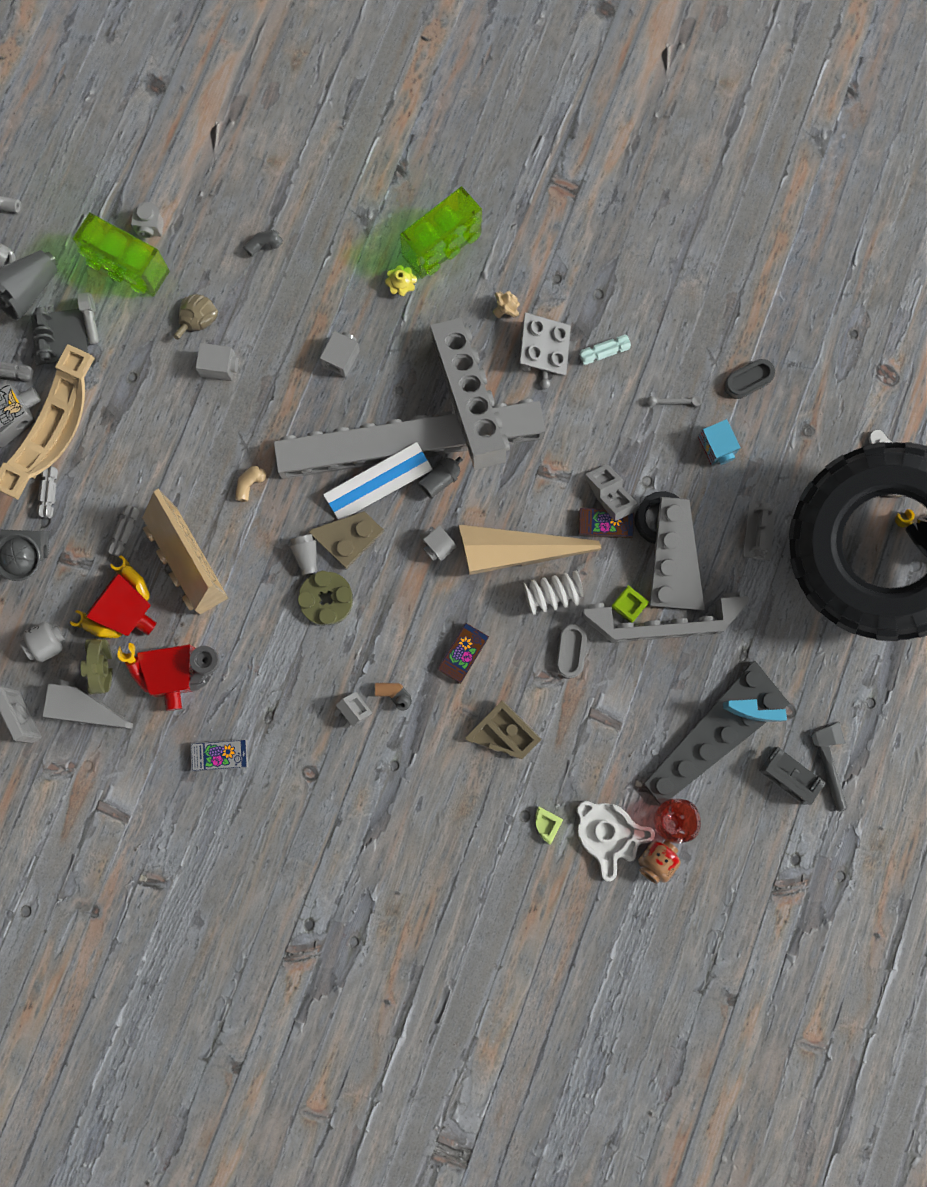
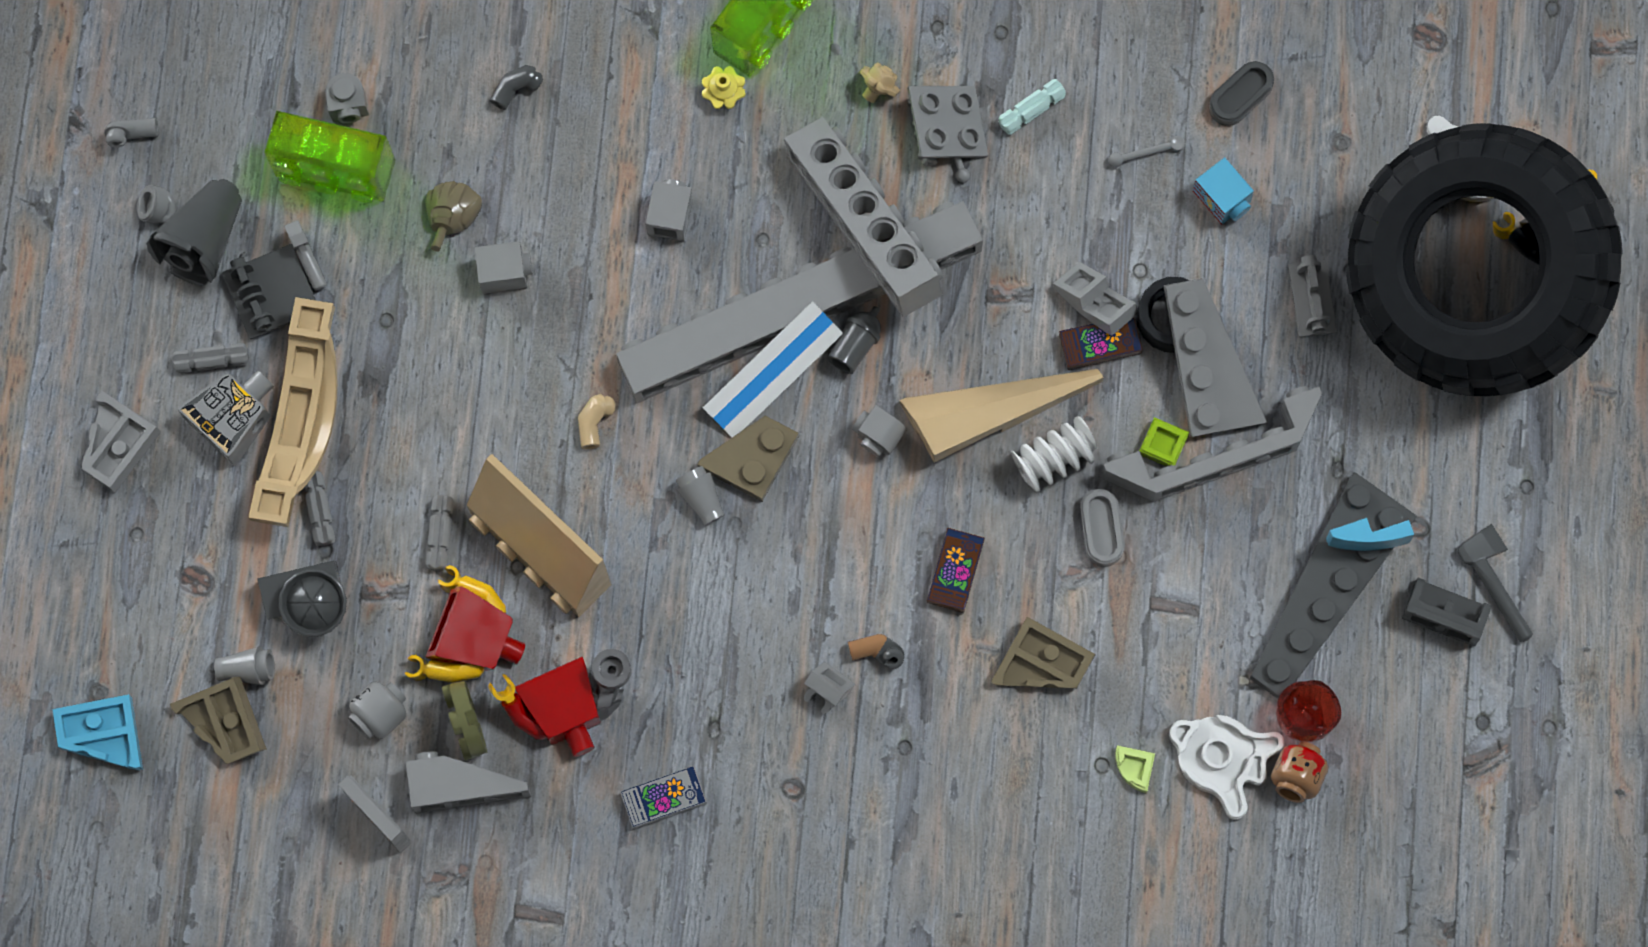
camera: 10 degrees left, 5 degrees down
(327, 613) = (756, 567): olive plate -> none

